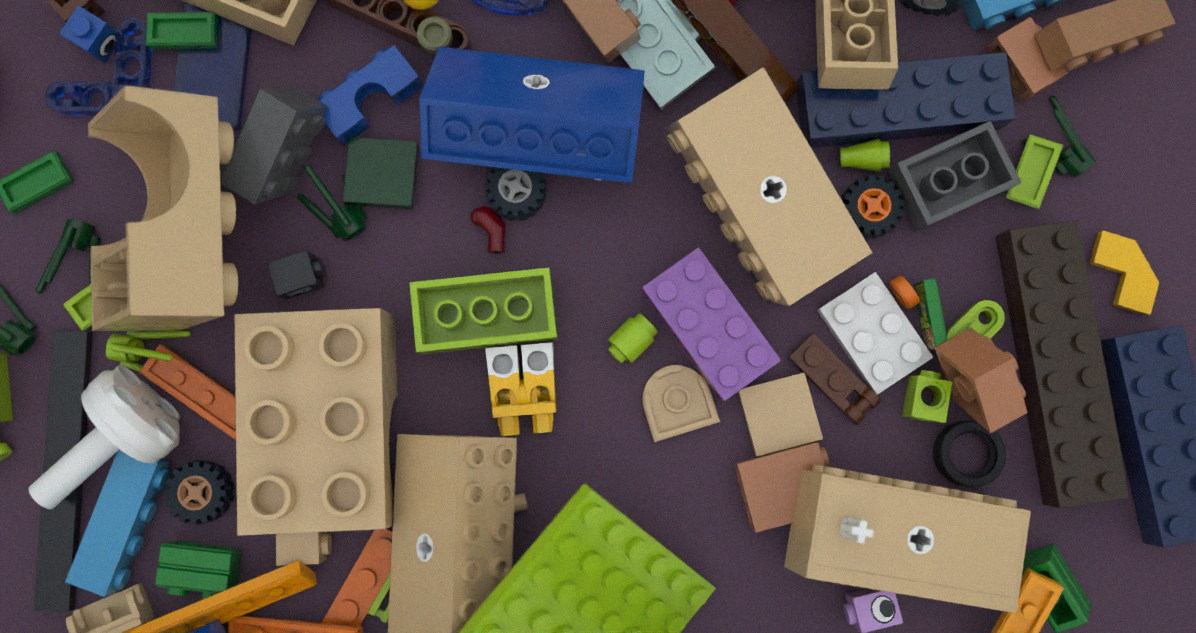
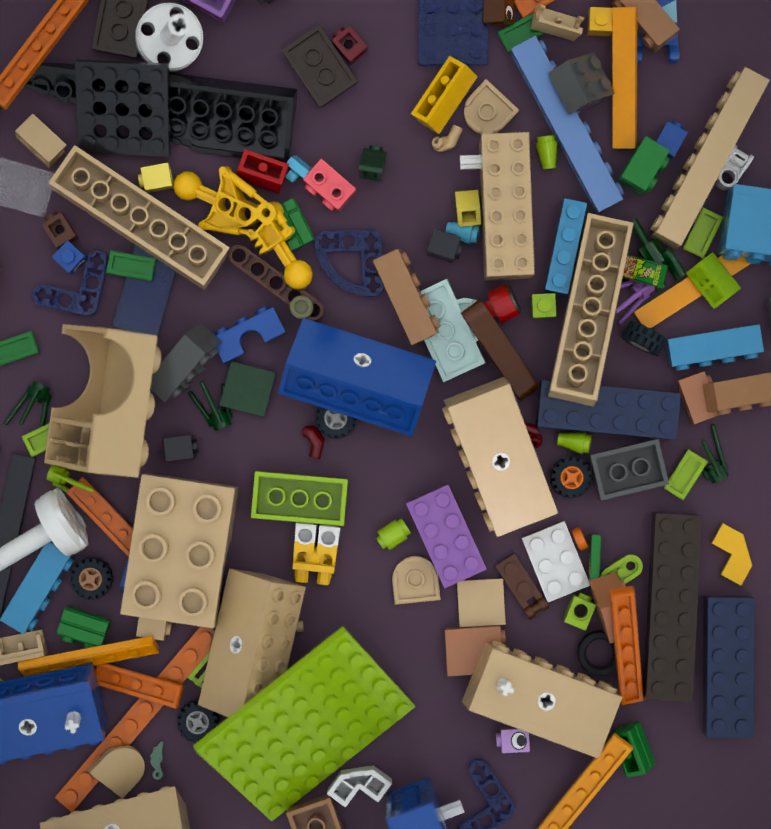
camera: 15 degrees right, 5 degrees up
(1016, 423) = (626, 644): none -> orange tile

